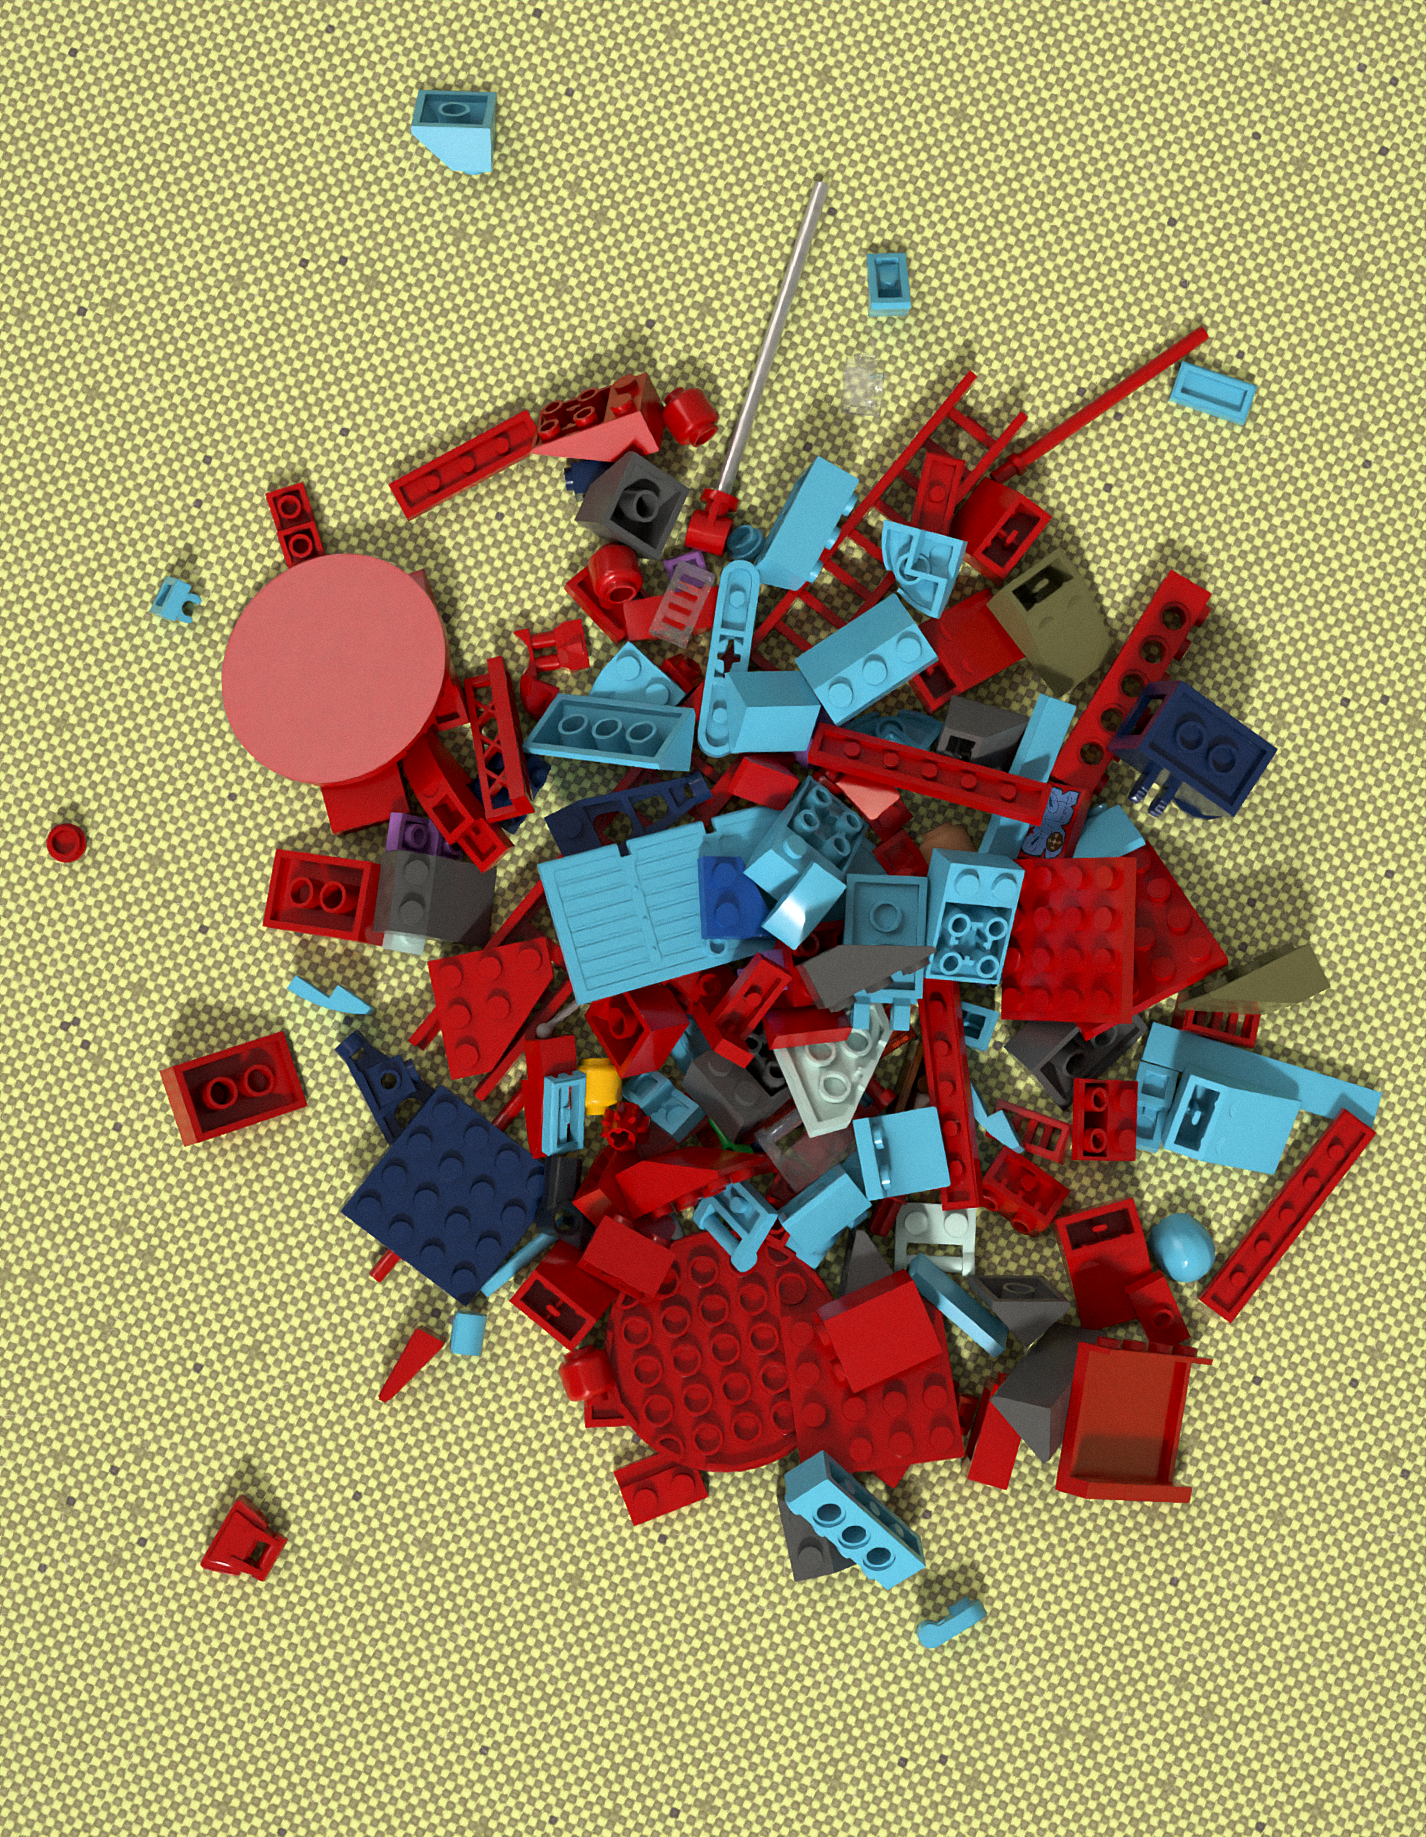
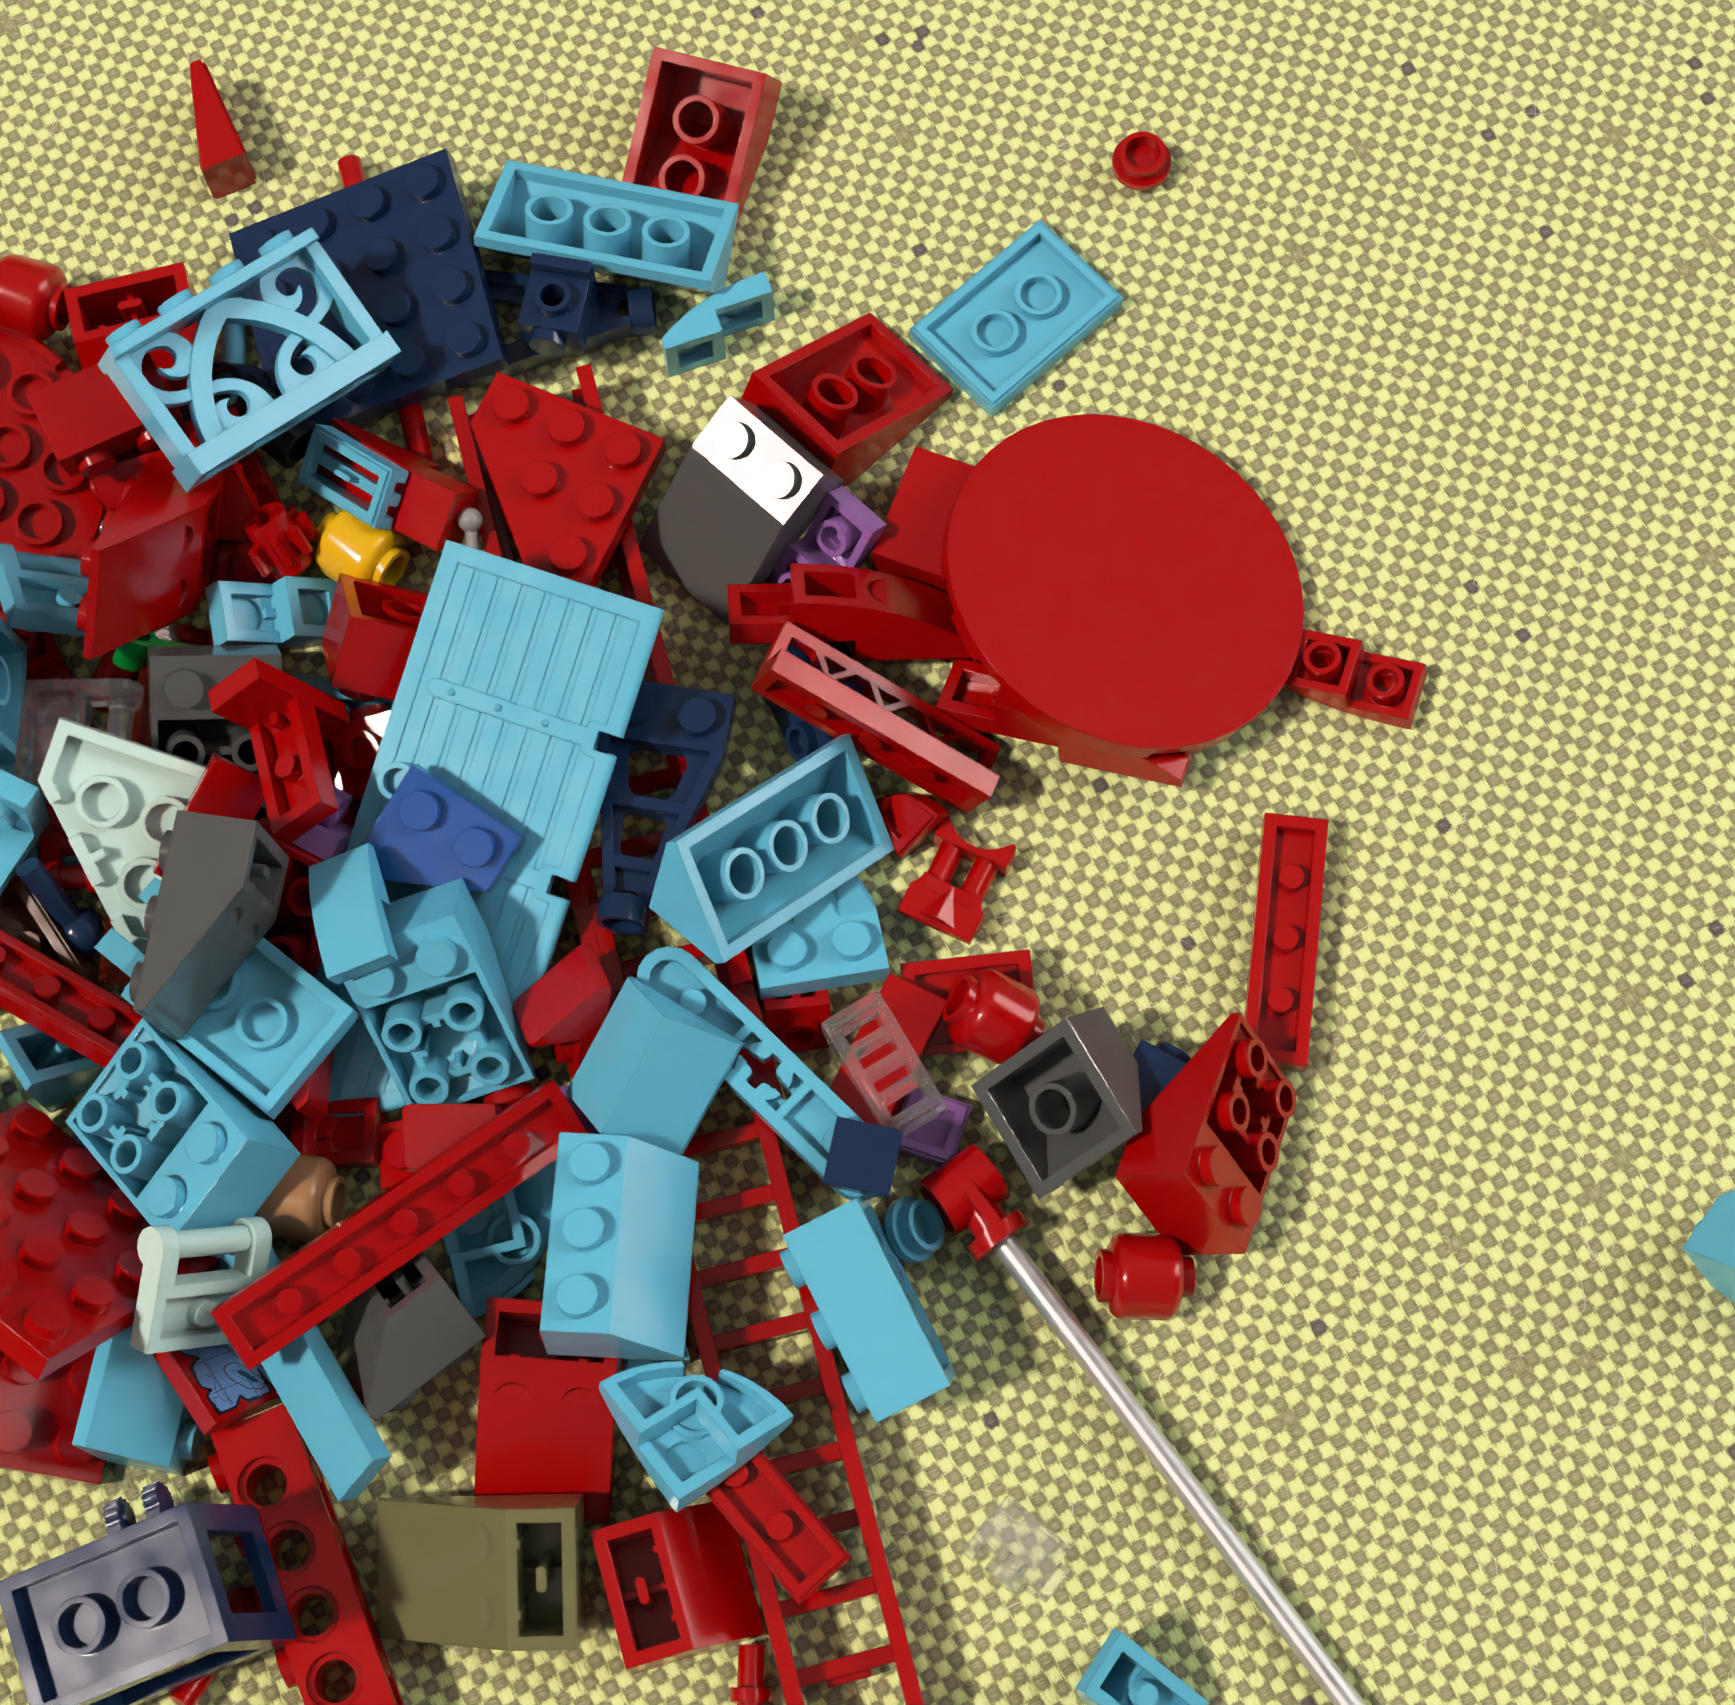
camera: 125 degrees right, 15 degrees down
(171, 599) = (1363, 465): medium azure tile -> none
(209, 845) = (1015, 318): none -> medium azure tile
(319, 1094) = (613, 224): none -> medium azure slope
(467, 1332) = (197, 214): medium azure brick -> none
(570, 1164) = (221, 435): none -> medium azure fence
(737, 577) = (862, 1158): none -> dark blue tile
(894, 1070) = (80, 925): none -> dark blue bar
(1043, 844) = (175, 1307): none -> light aqua plate

